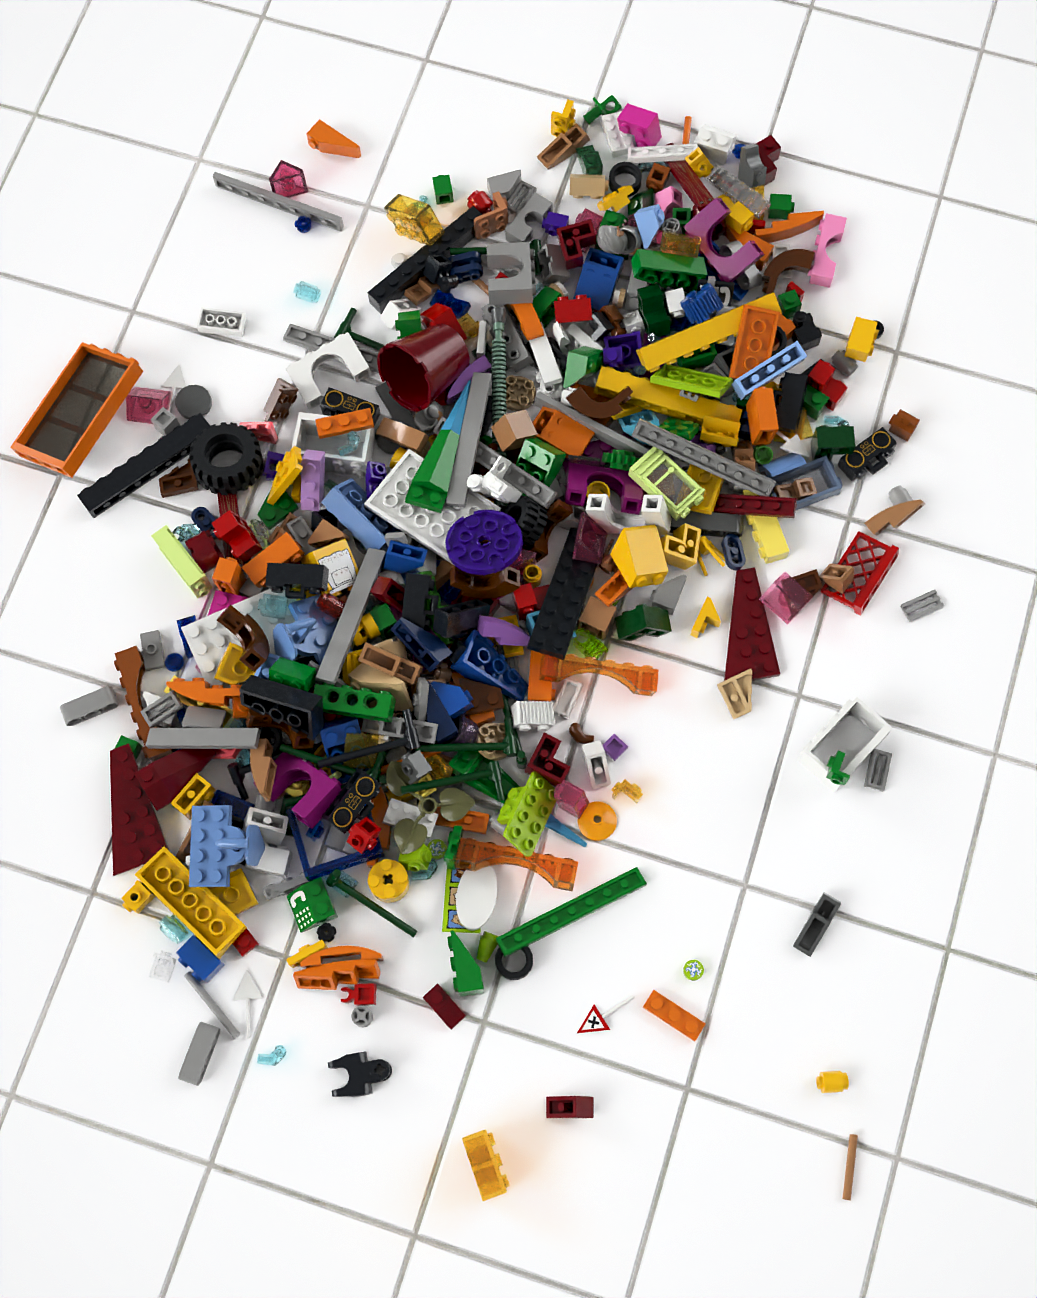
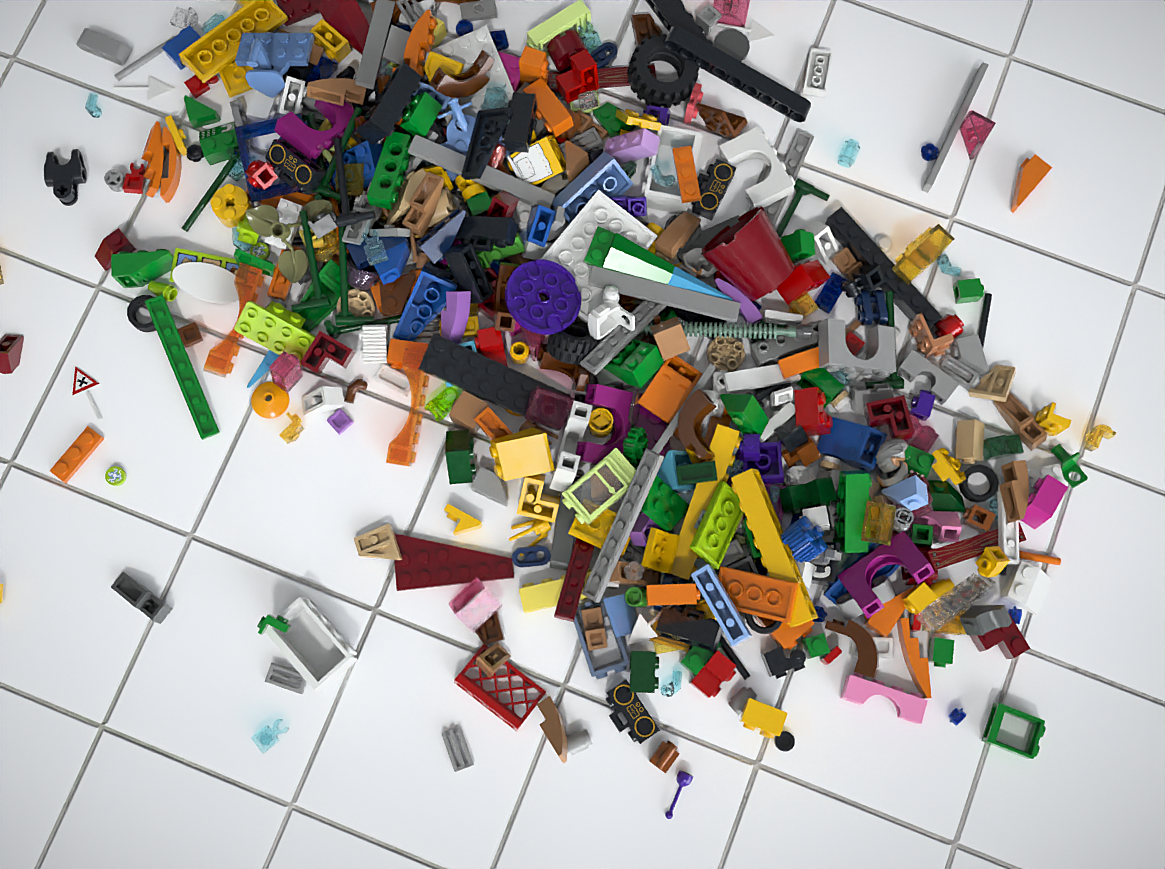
camera: 90 degrees right, 5 degrees up
(231, 387) = (737, 74): none -> black beam
(279, 933) = (200, 114): none -> green slope
(329, 611) = (485, 136): none -> black wing
(444, 707) = (375, 249): none -> clear light blue plate
(466, 177) = (984, 317): none -> black bar
(532, 166) = (995, 384): none -> tan wing
(535, 906) = (190, 334): none -> reddish brown tile
(573, 88) = (1095, 436): none -> clear yellow bracket
(633, 145) = (1015, 490): none -> medium nougat slope
(644, 401) = (696, 473): none -> dark green tile
(743, 445) = (634, 566): none -> clear plate
(834, 194) = (957, 716): none -> clear blue plate
(836, 164) = (993, 725): none -> green window
(921, 408) = (683, 779): none -> dark purple hinge
(937, 781) = (267, 736): none -> clear light blue plate

